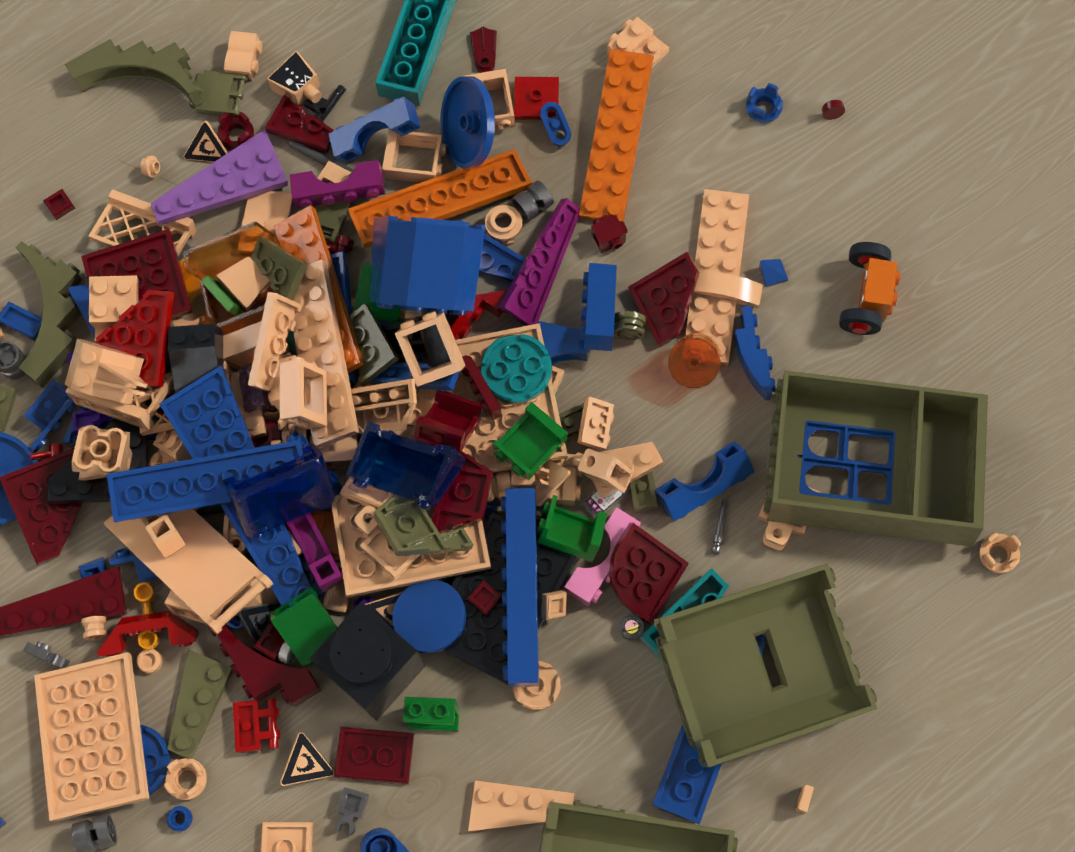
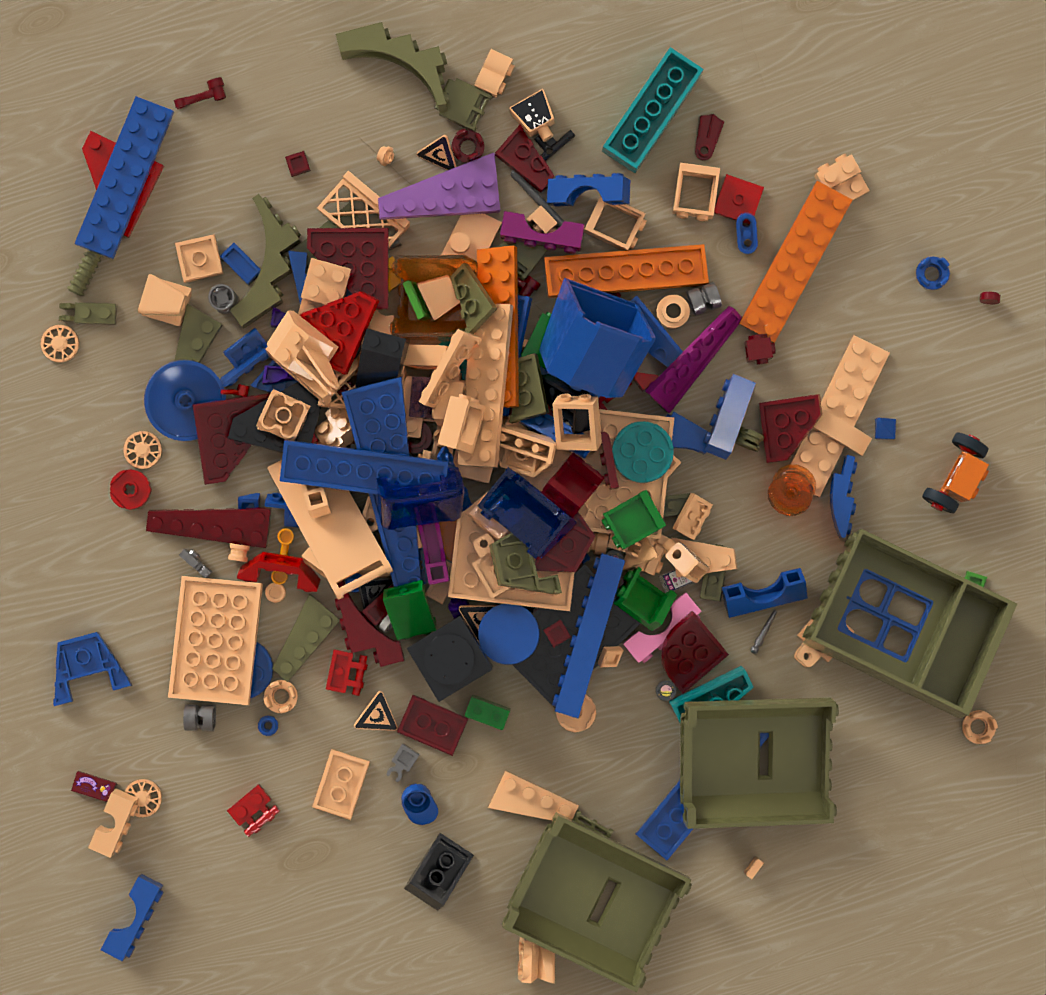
camera: 15 degrees right, 15 degrees up
(467, 121) = (671, 214): blue dish -> none

